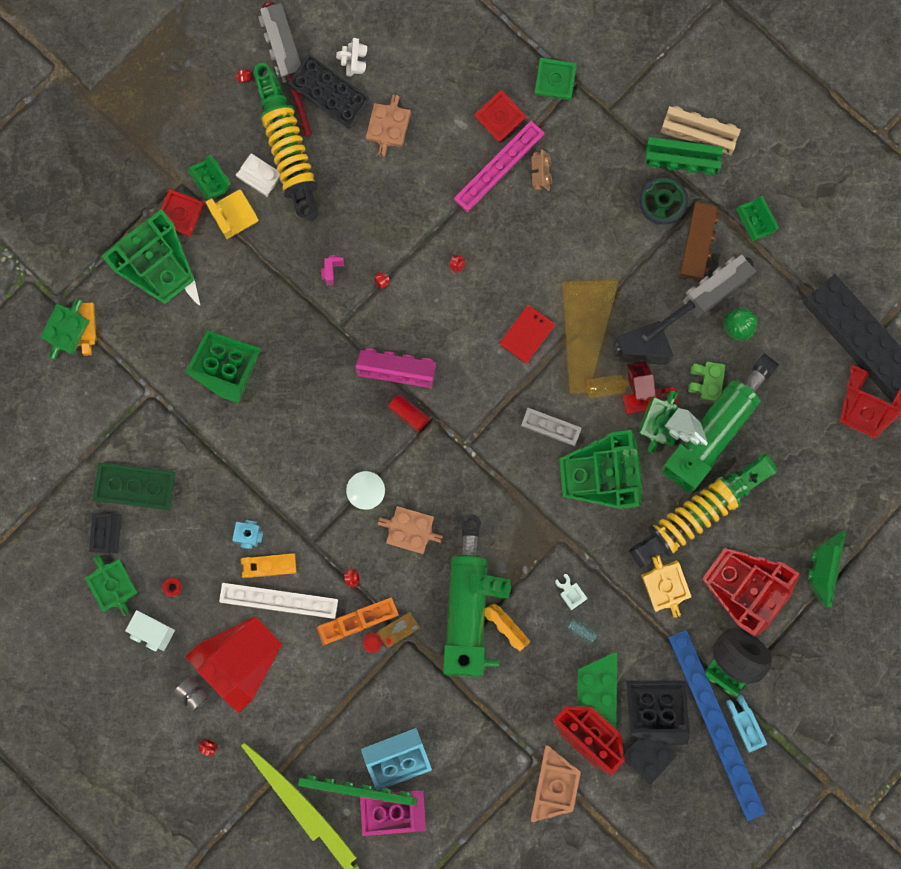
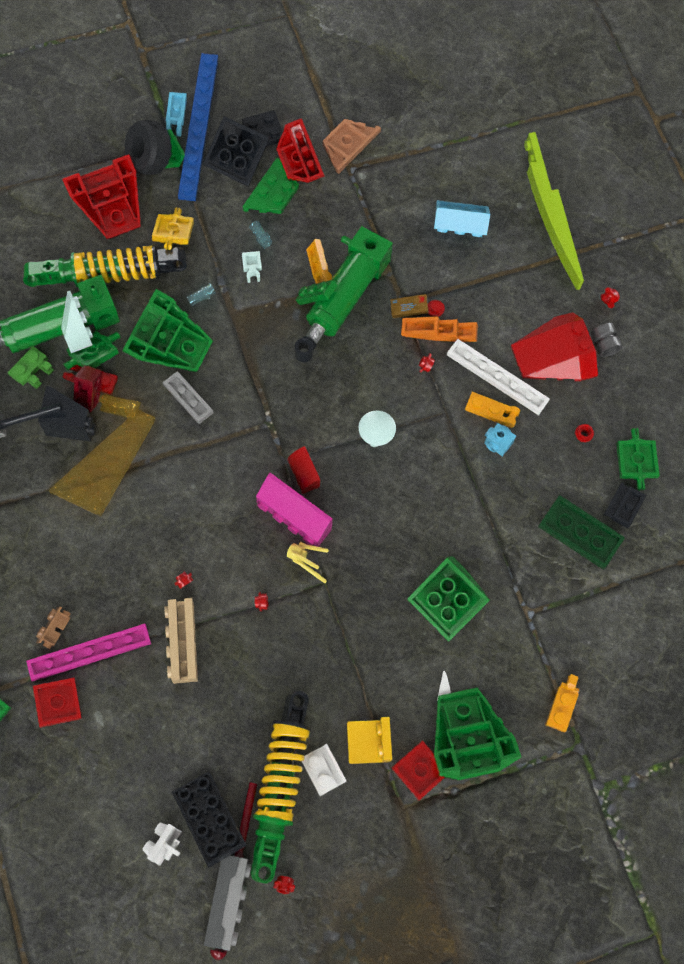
camera: 155 degrees left, 10 degrees down
(65, 328) = (585, 709): green plate -> none
(149, 630) = (620, 404): light aqua brick -> none
(209, 178) = (374, 790): green bracket -> none
(327, 272) = (308, 634): dark pink bracket -> none
(350, 789) = (506, 202): green plate -> none
(373, 334) = (298, 555): none -> light yellow plant
(388, 125) = (169, 753): nougat plate -> none
(391, 818) = (484, 182): dark pink slope -> none
(410, 530) = (356, 377): nougat plate -> none
(429, 214) = (182, 641): none -> tan brick
(527, 334) = (159, 486): red container -> none
(599, 537) = (203, 293): none -> clear light blue pin
(825, 568) = (35, 182): green wedge -> none

